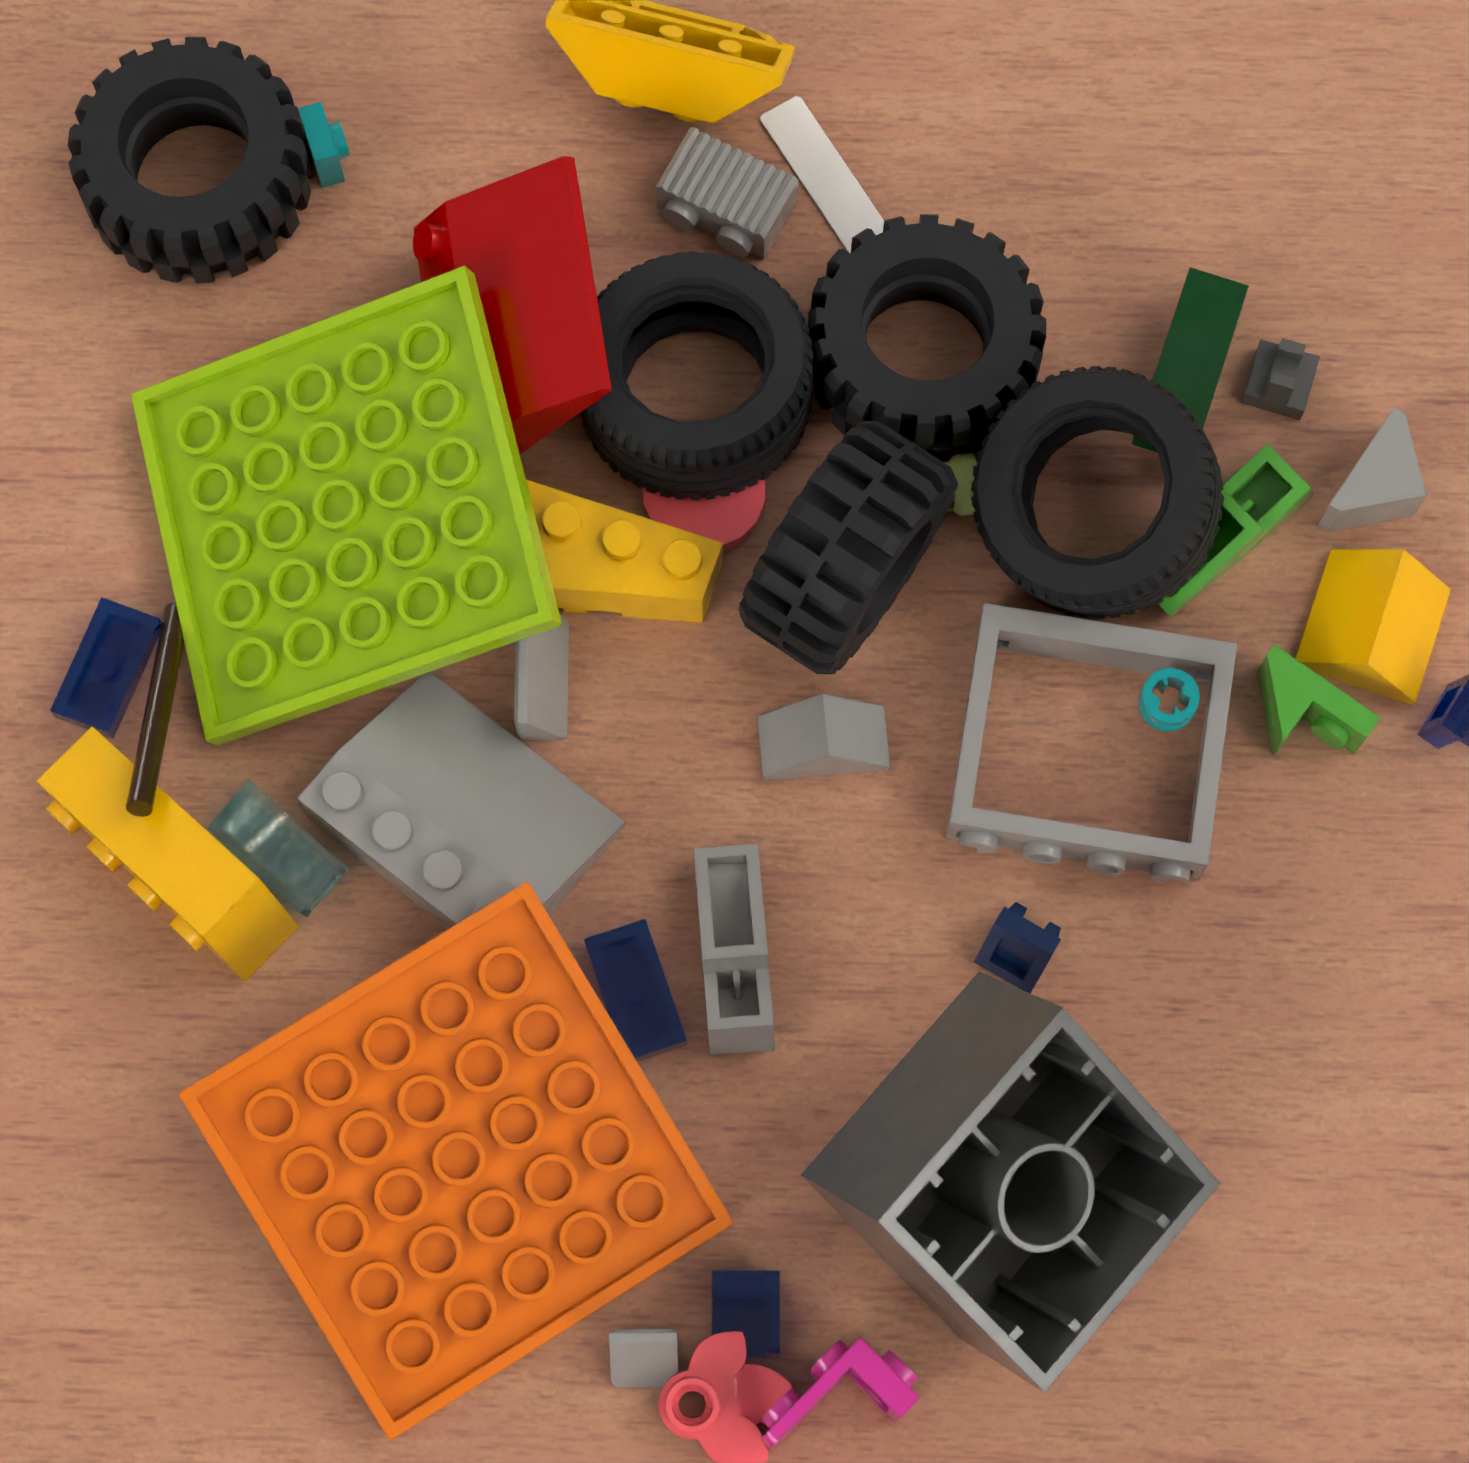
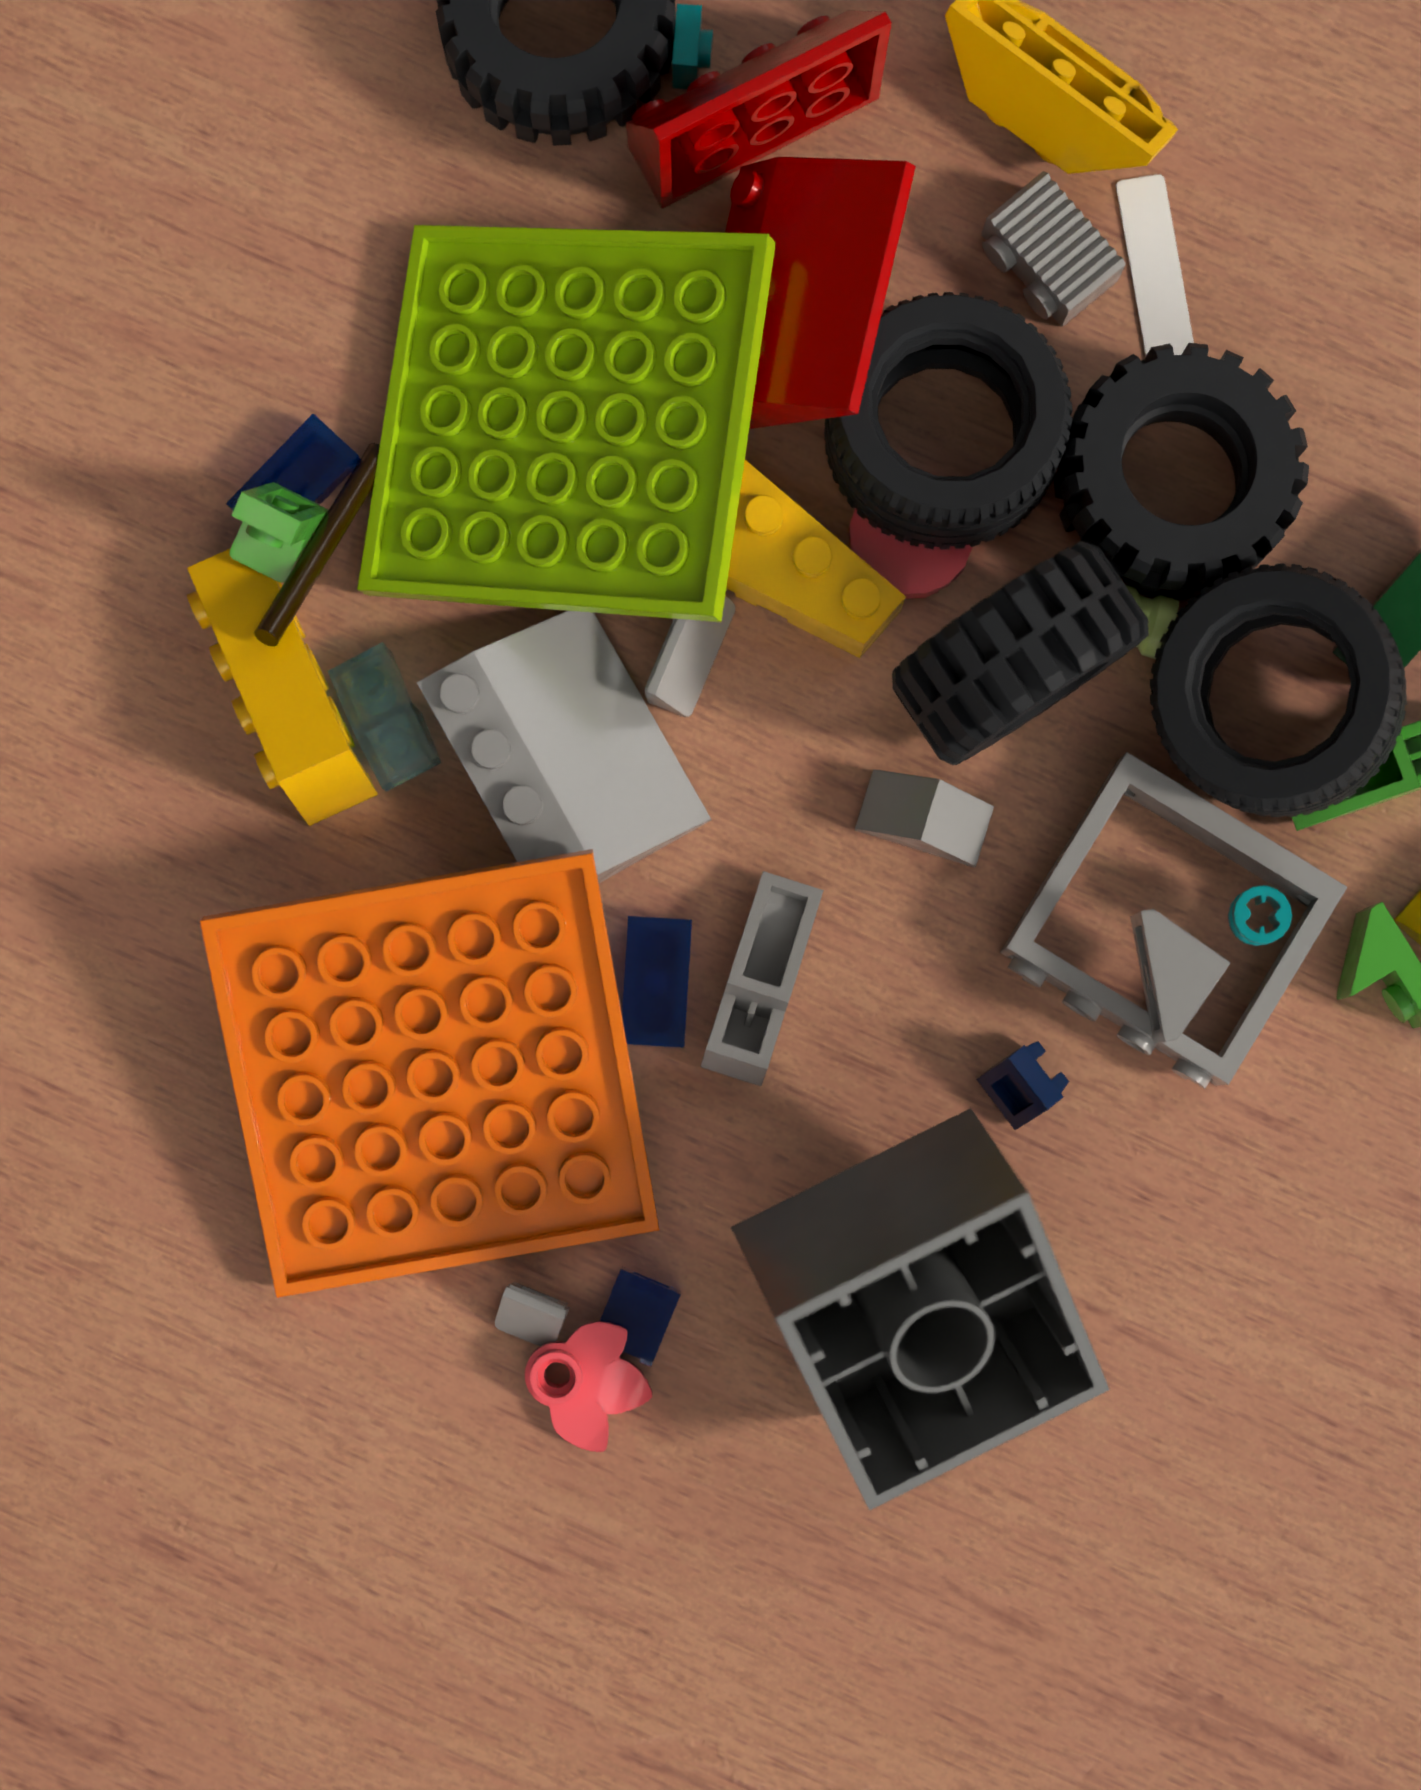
camera: 20 degrees right, 10 degrees up
(107, 713) = (274, 529): none -> bright green slope
(409, 167) = (760, 104): none -> red slope
(882, 1378) = (731, 1426): dark pink bracket -> none
(1112, 777) = (1174, 973): none -> light grey slope

